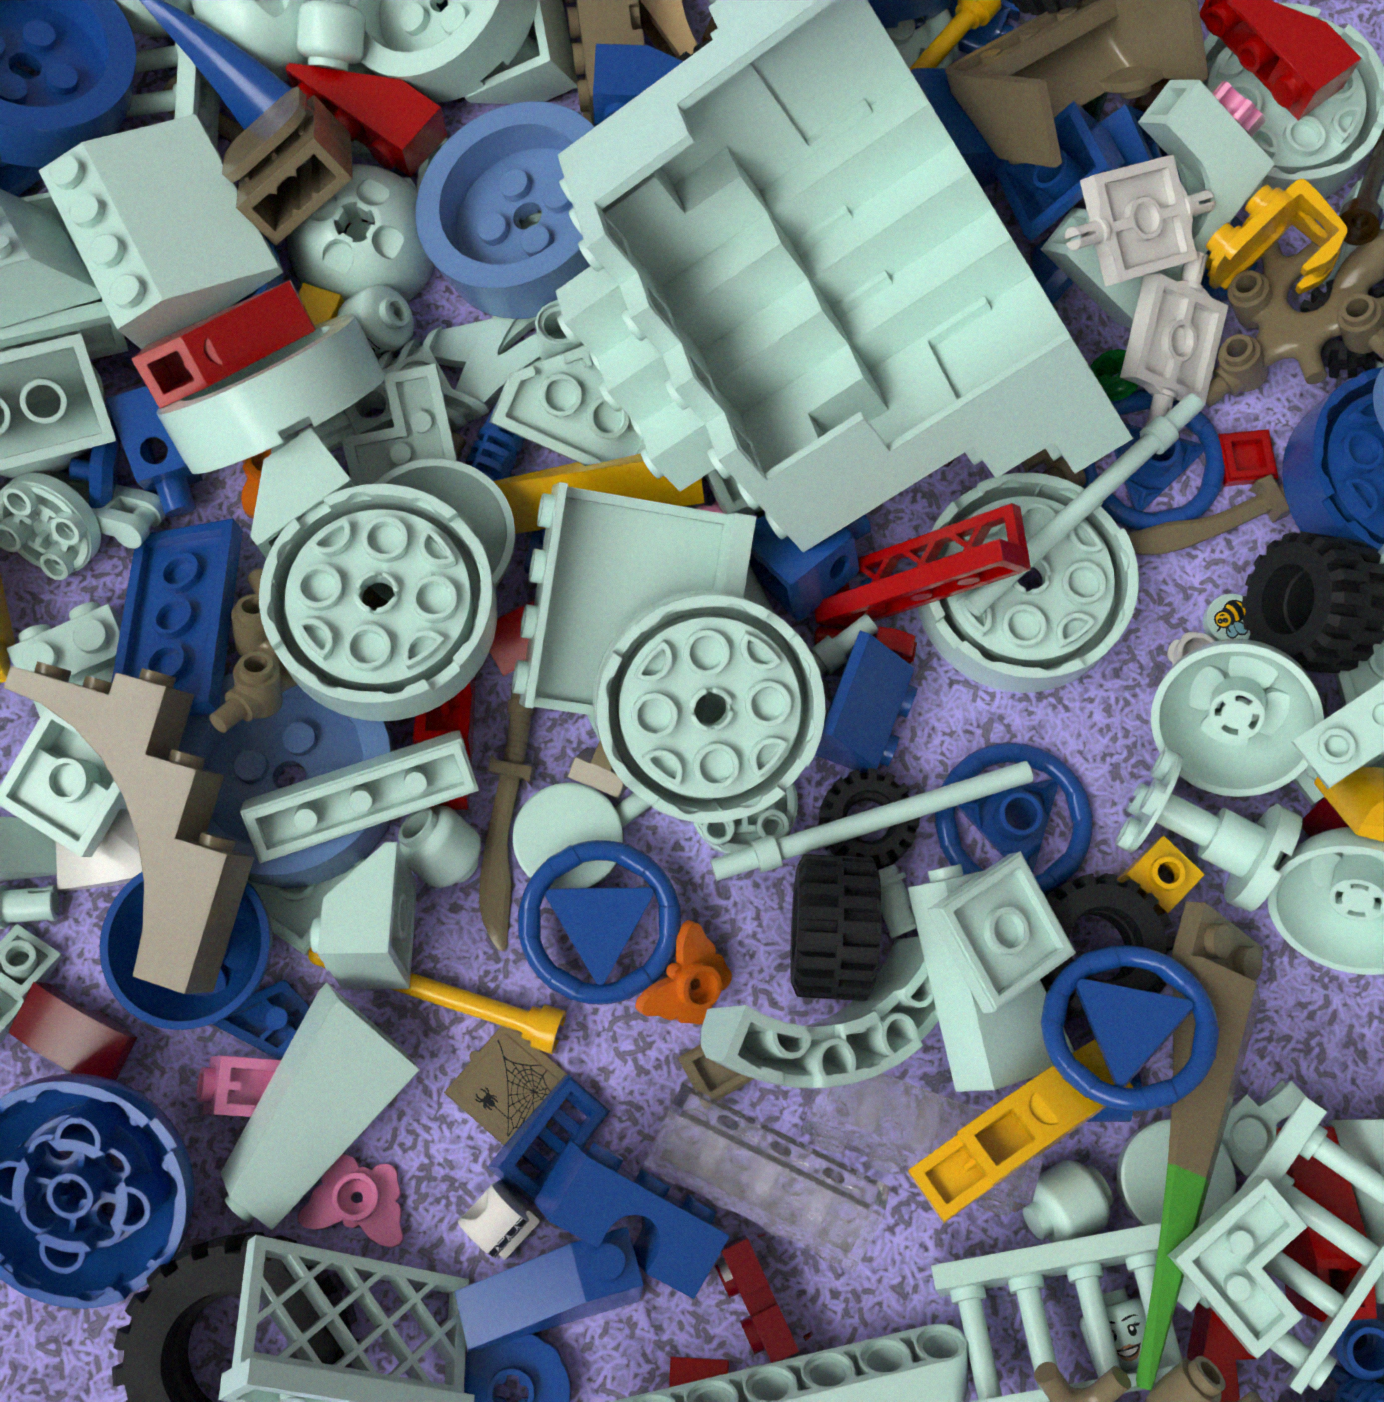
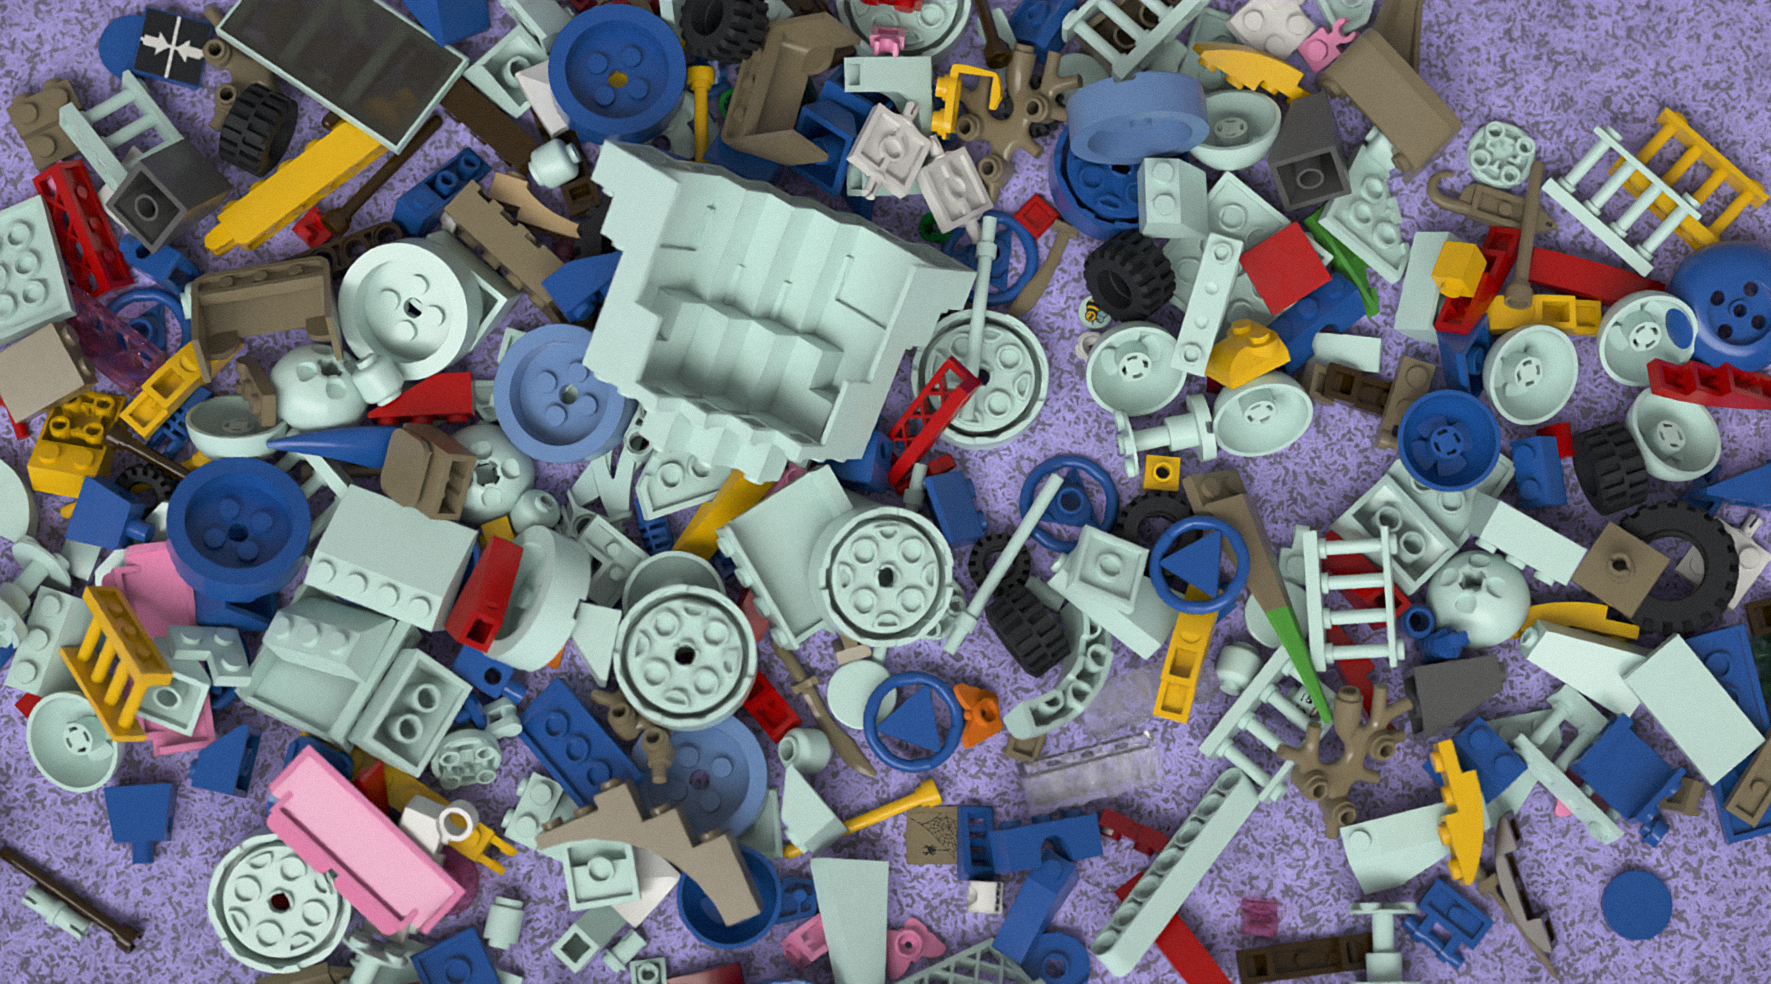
camera: 40 degrees left, 5 degrees up
(358, 796) = (750, 757): light aqua slope -> none
(1227, 1261) = (1322, 636): light aqua plate -> none

